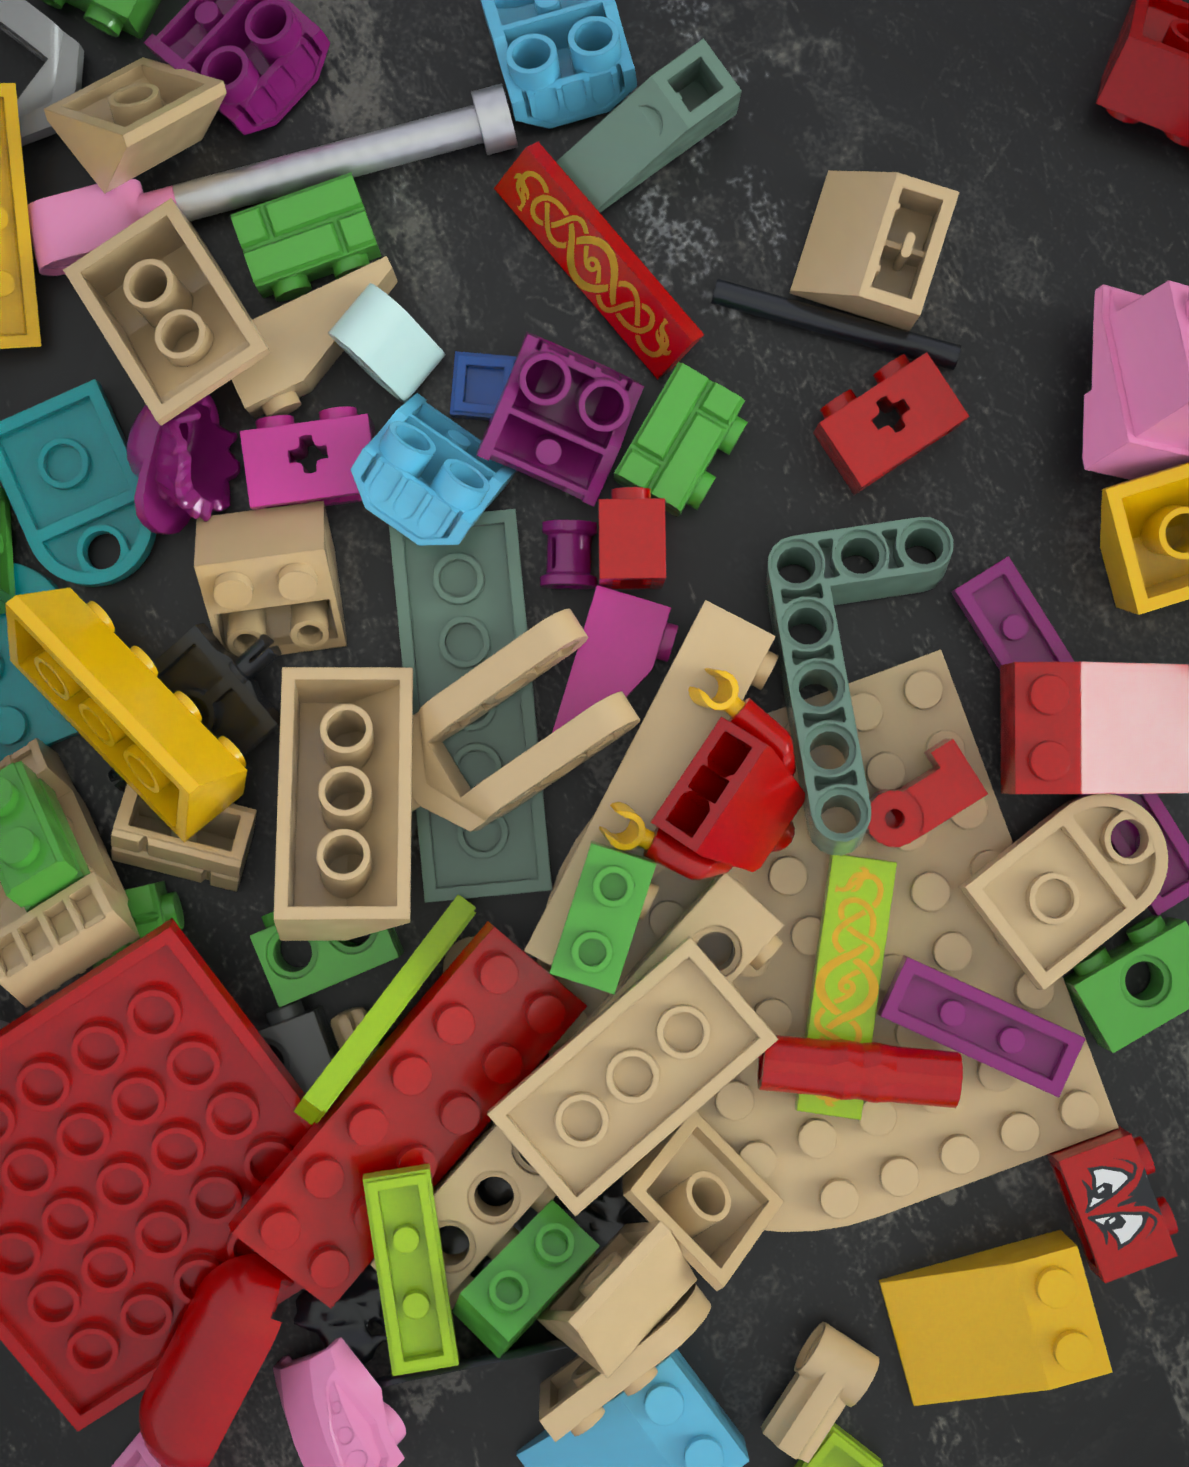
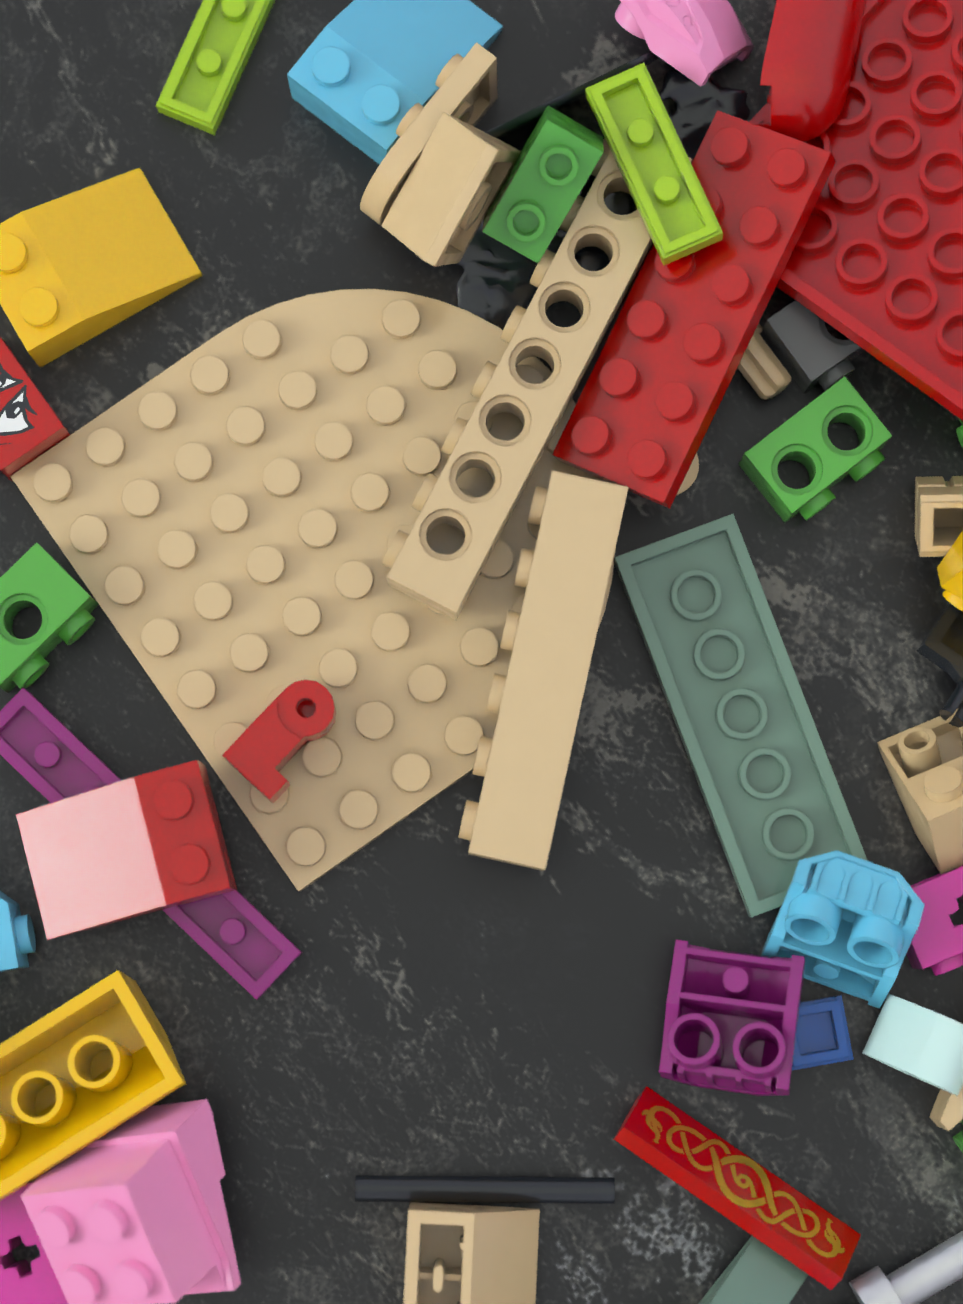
camera: 165 degrees right, 5 degrees down
(343, 802) = (840, 584): tan slope -> none
(385, 1011) = (743, 399): lime tile -> none
(436, 777) = (757, 632): tan piece -> none
(568, 554) = (686, 886): magenta bush -> none
(603, 917) = (565, 535): bright green brick -> none
(620, 651) = (617, 797): dark pink slope -> none
(632, 540) = (632, 912): red brick -> none
(632, 1076) = (495, 396): tan plate -> none
(681, 439) = (607, 1028): bright green brick -> none
(703, 1197) = (395, 303): tan slope -> none
(731, 798) = (471, 680): red torso -> none
(823, 661) = (414, 844): sand green beam -> none
(828, 1377) = (230, 171): tan piece -> none
(848, 963) = (309, 540): lime tile -> none
(861, 1071) = (277, 459): red axle -> none
(926, 414) = (371, 1117): red brick -> none
(981, 1026) = (170, 534): magenta plate -> none
(1065, 885) = (120, 689): tan plate -> none

